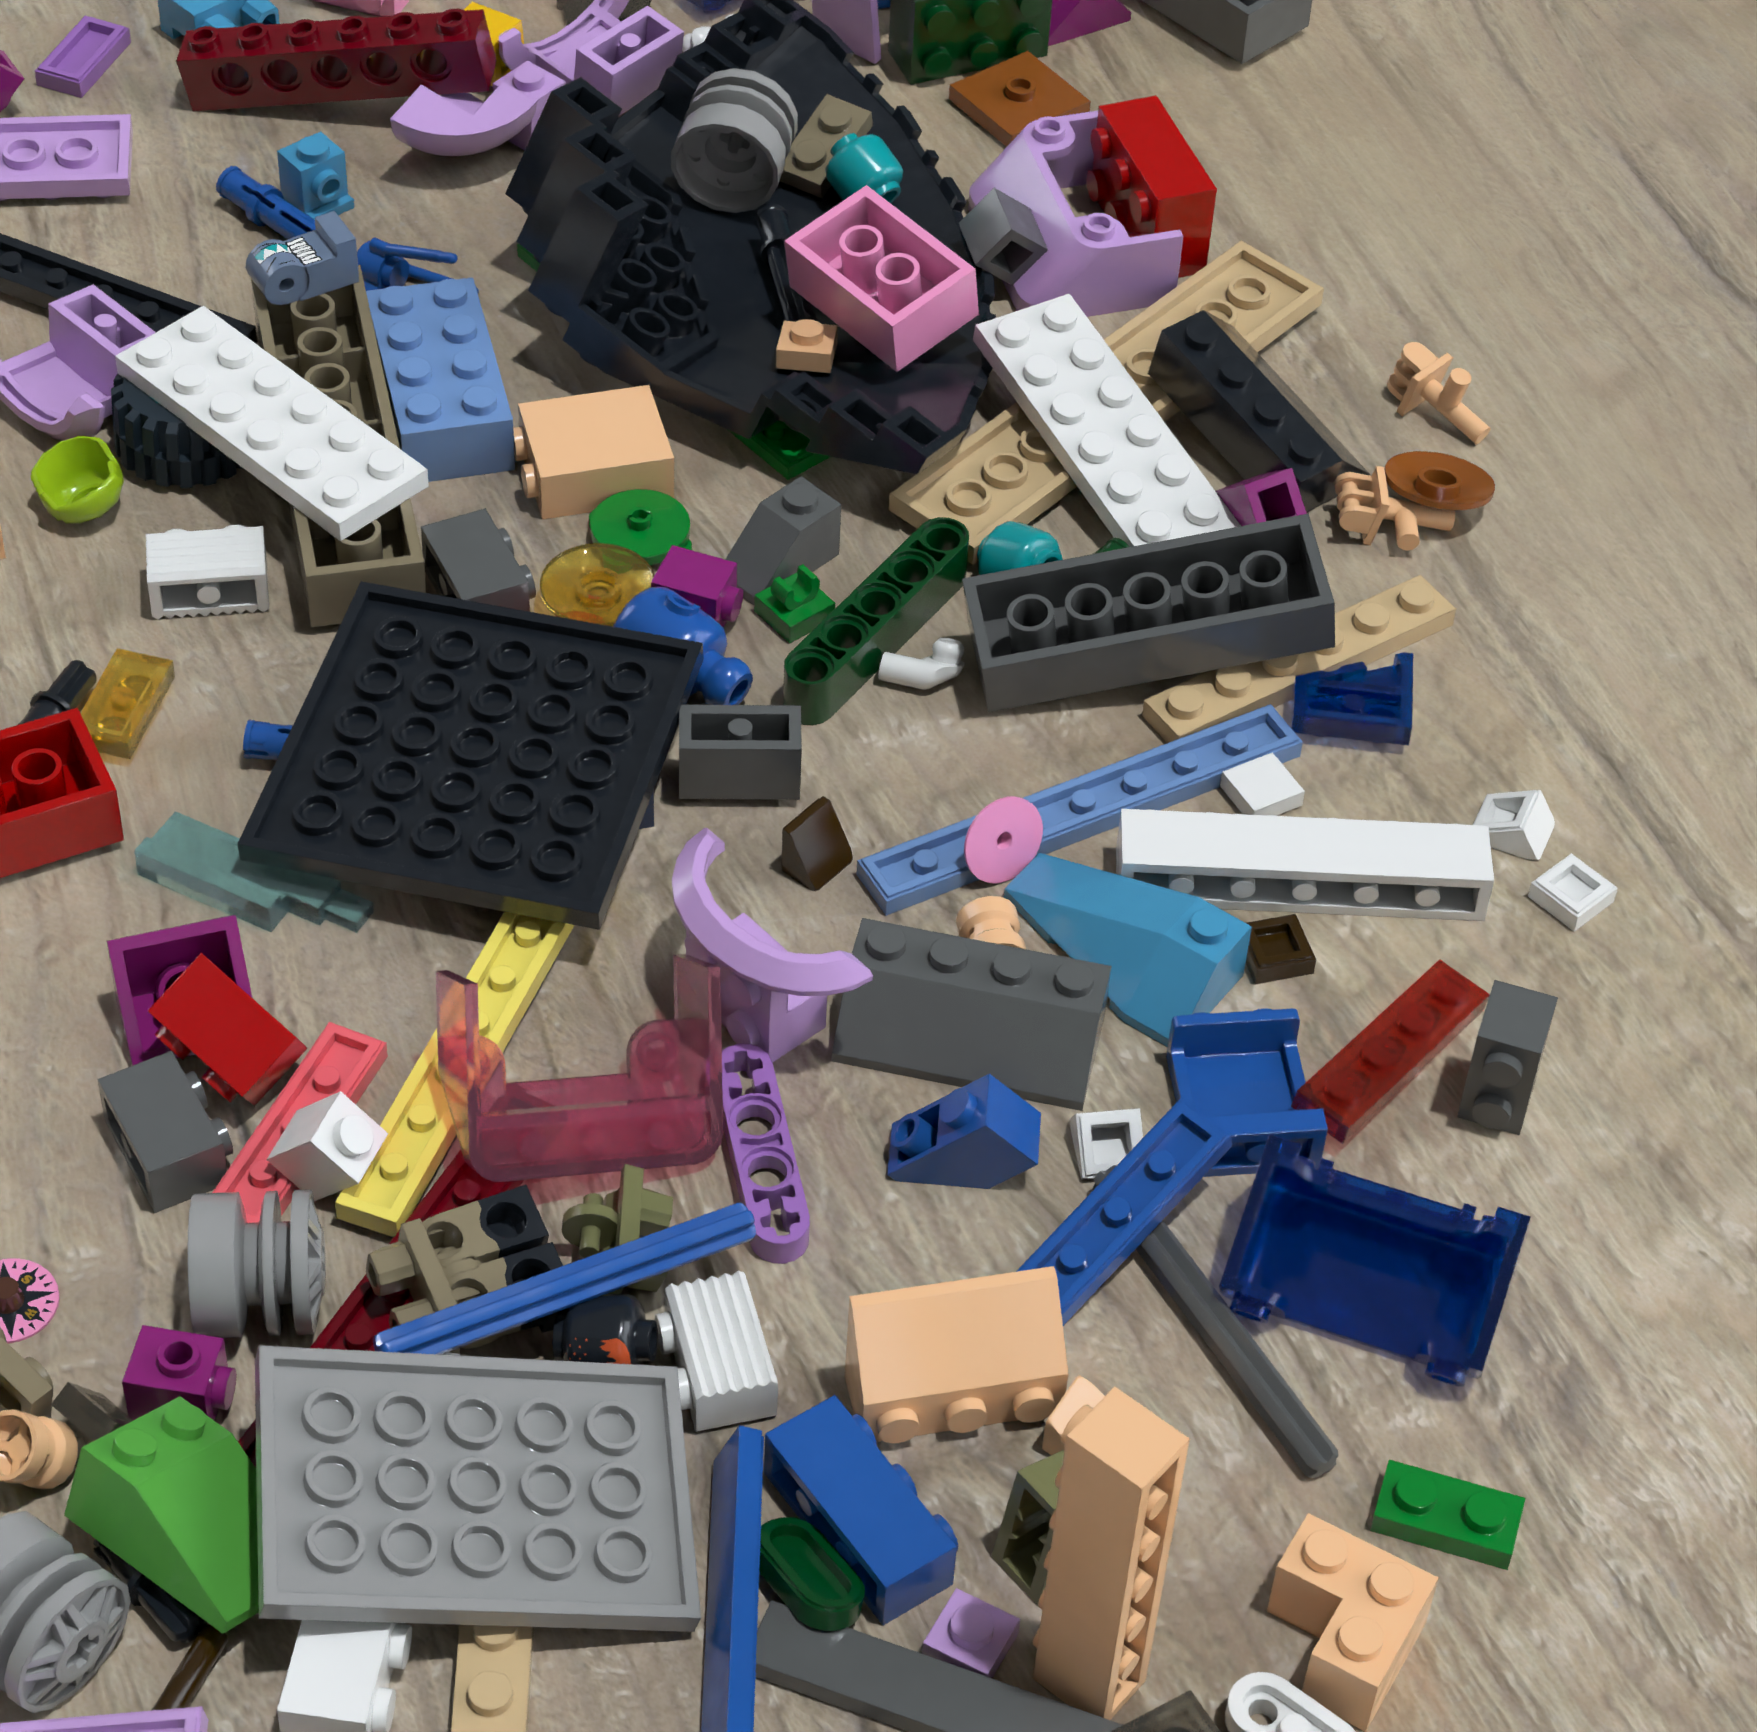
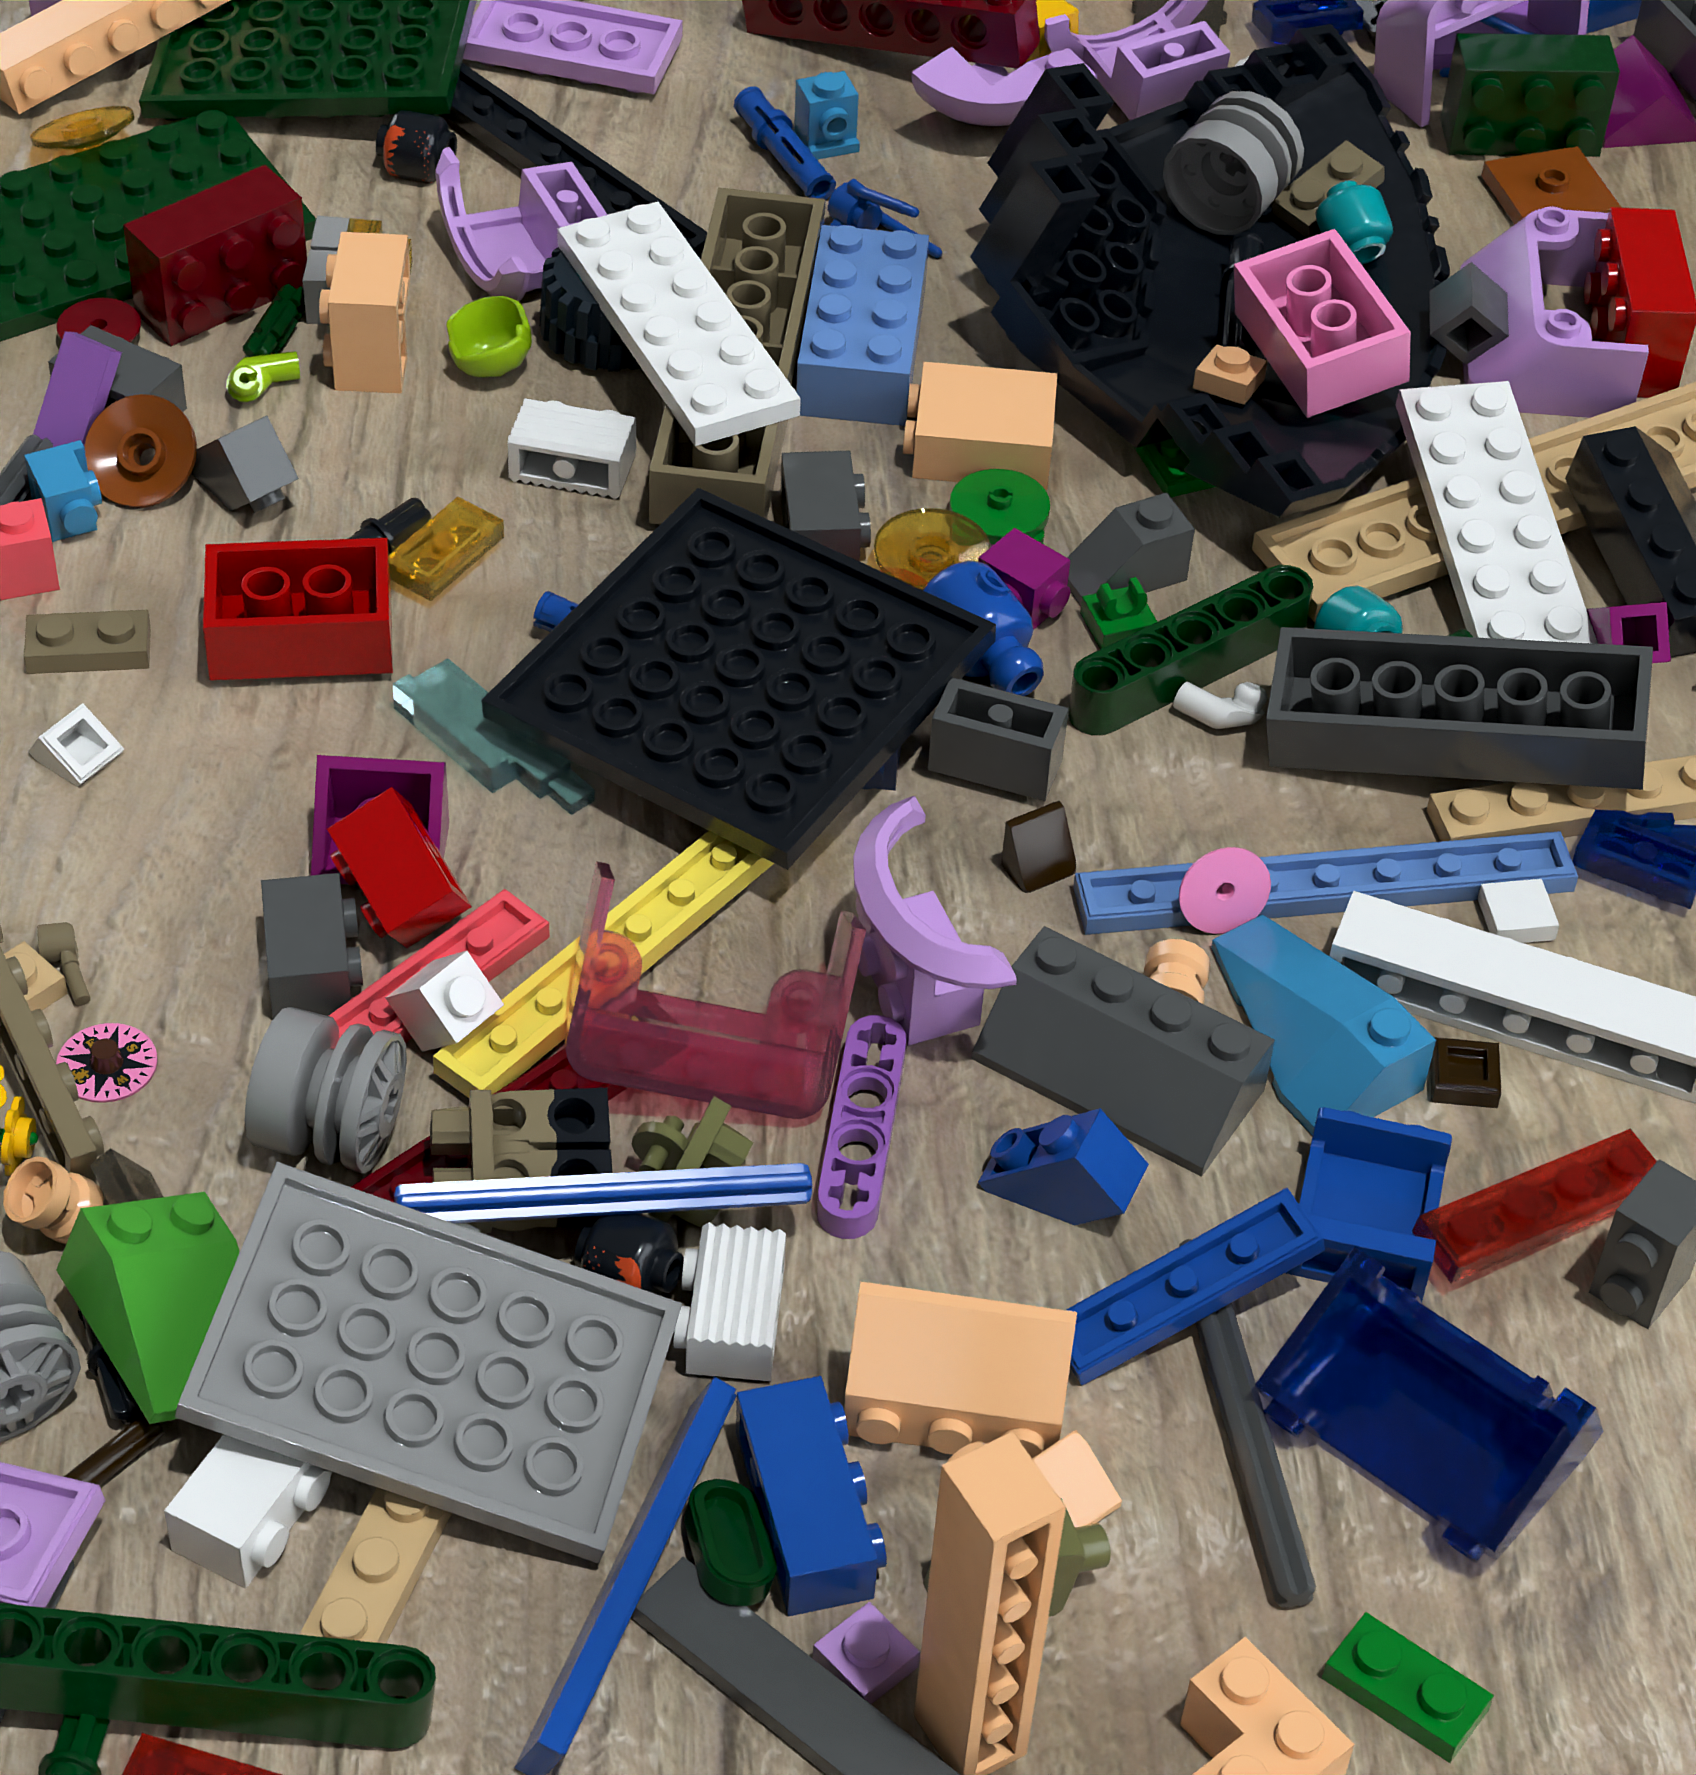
camera: 20 degrees right, 0 degrees up
(177, 1365) = (222, 1166): magenta brick -> none
(305, 263) = (769, 184): sand blue leg -> none
(1104, 1138) = (1207, 1205): white slope -> none

